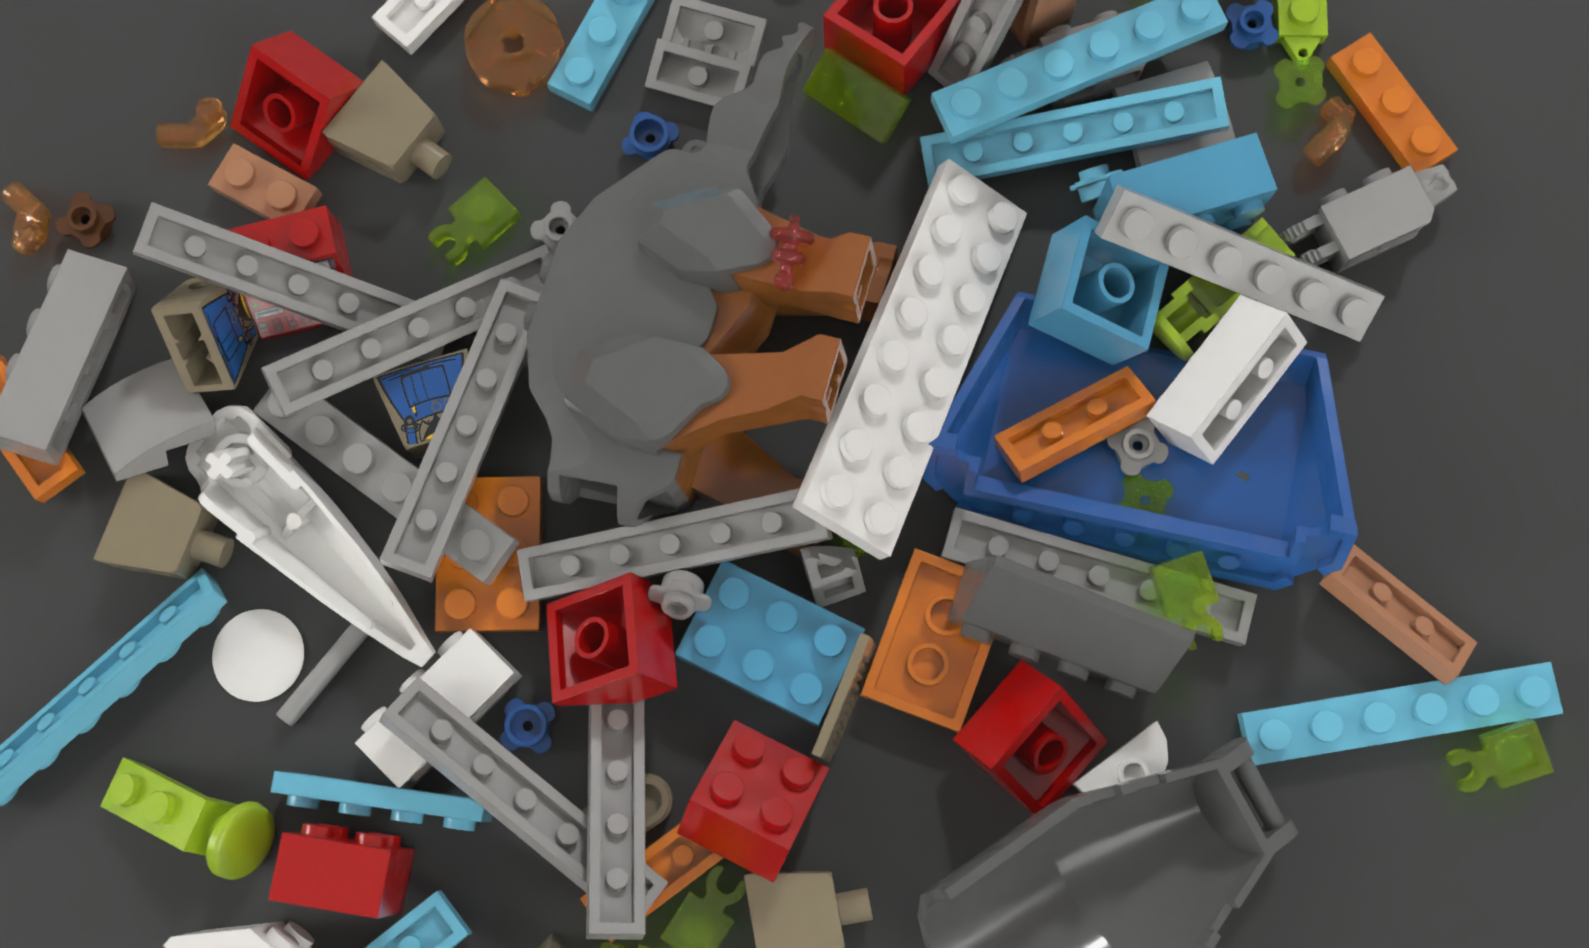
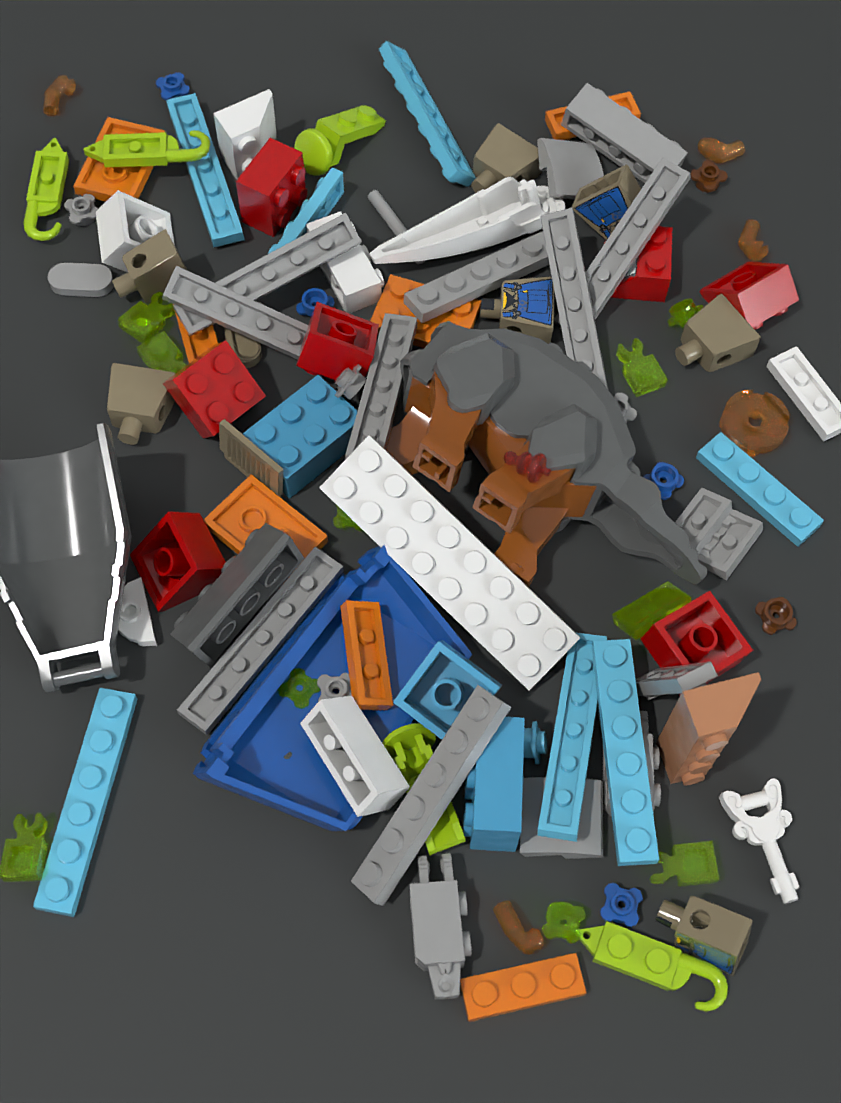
camera: 105 degrees right, 15 degrees down
(258, 655) = (416, 194): white sticker -> none
(262, 185) = (700, 267): nougat plate -> none
(362, 183) = (682, 312): none -> clear neon green plate
(461, 436) = (489, 296): light grey plate -> none
(832, 573) = (330, 464): light grey slope -> none
(1184, 590) = (224, 678): clear neon green plate -> none
(1400, 615) = (150, 821): nougat plate -> none

